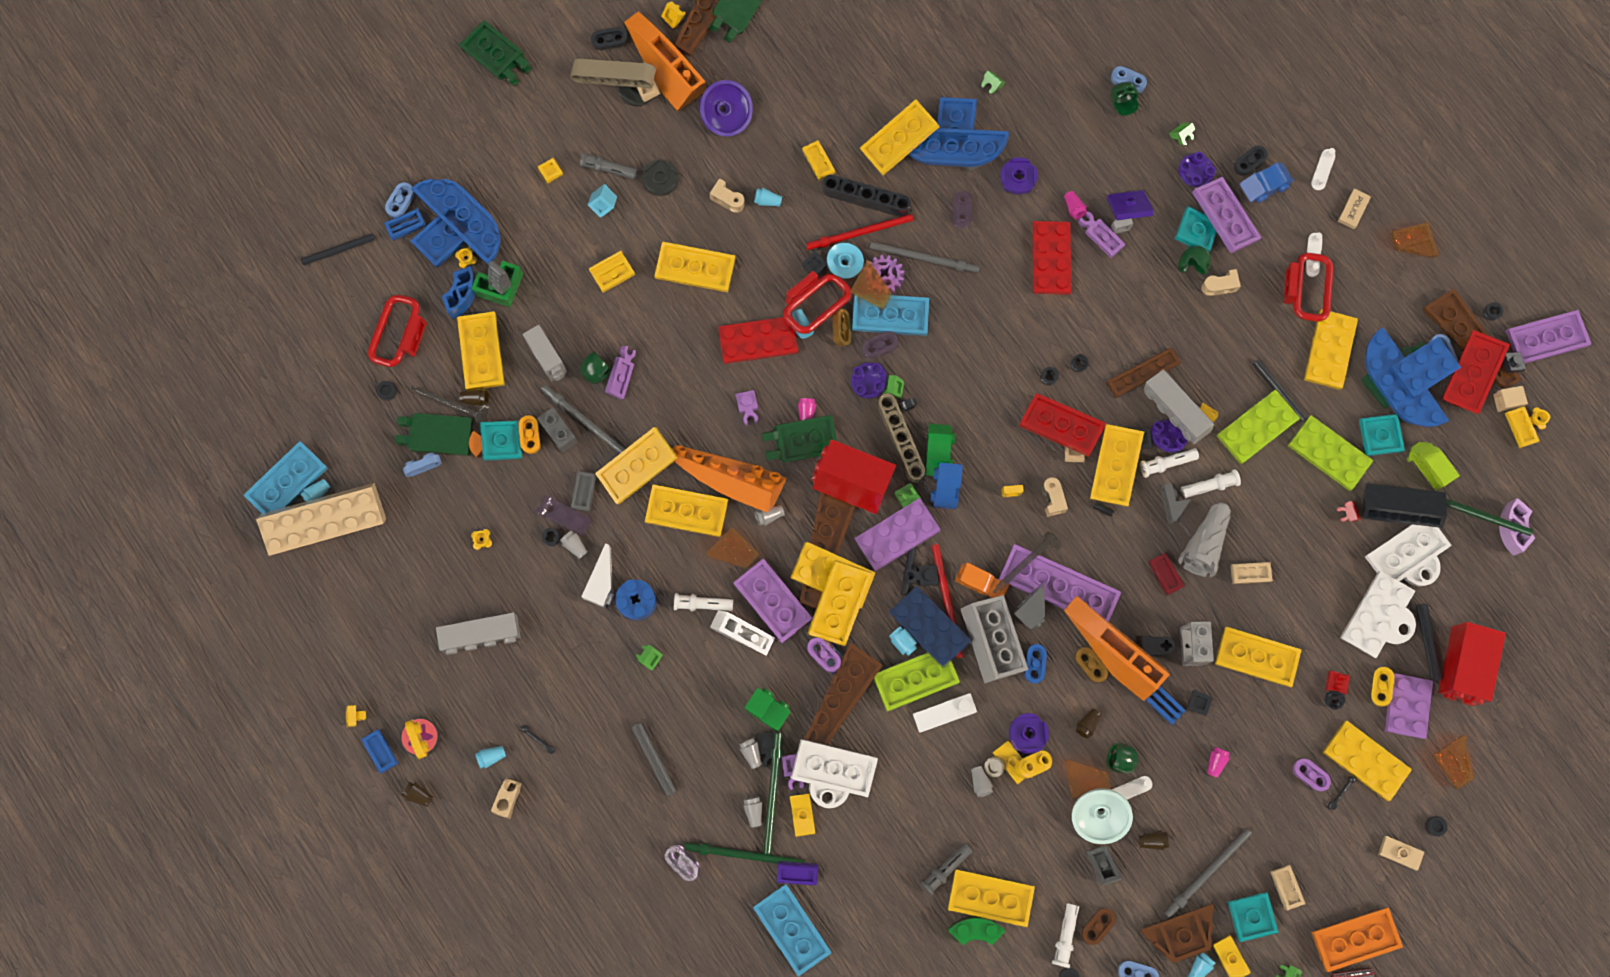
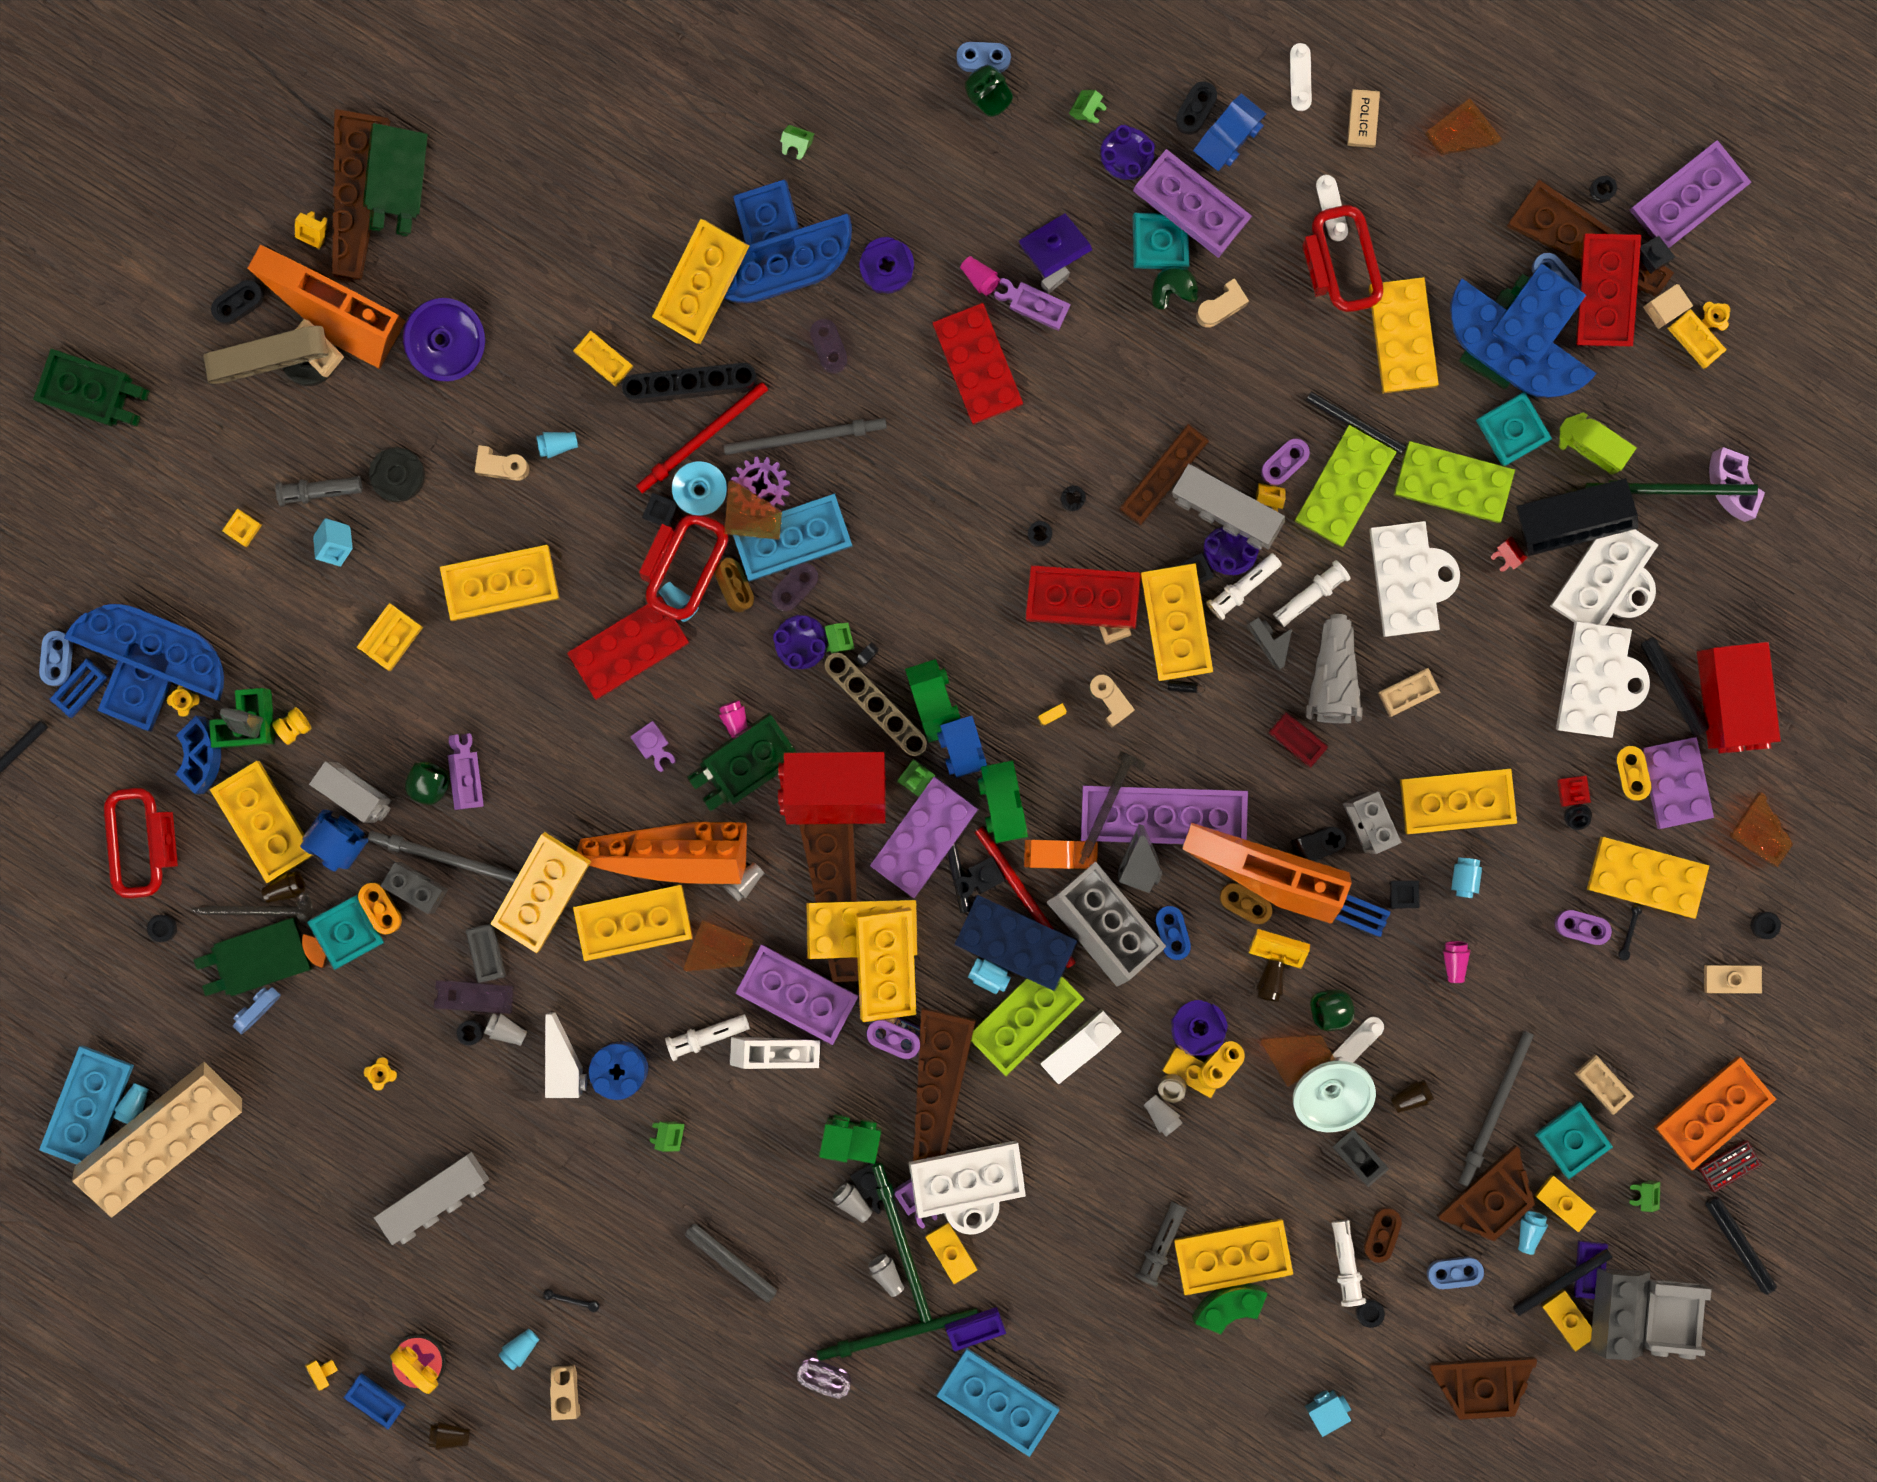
camera: 20 degrees left, 10 degrees up
(521, 379) = (334, 840): none -> blue brick
(530, 298) = (291, 726): none -> yellow wheel
(958, 533) = (1004, 802): none -> green brick
(1103, 703) = (1279, 948): none -> yellow plate
(1224, 396) = (1284, 462): none -> medium lavender plate
(1245, 708) = (1466, 877): none -> medium azure brick
(1278, 501) = (1409, 578): none -> white plate

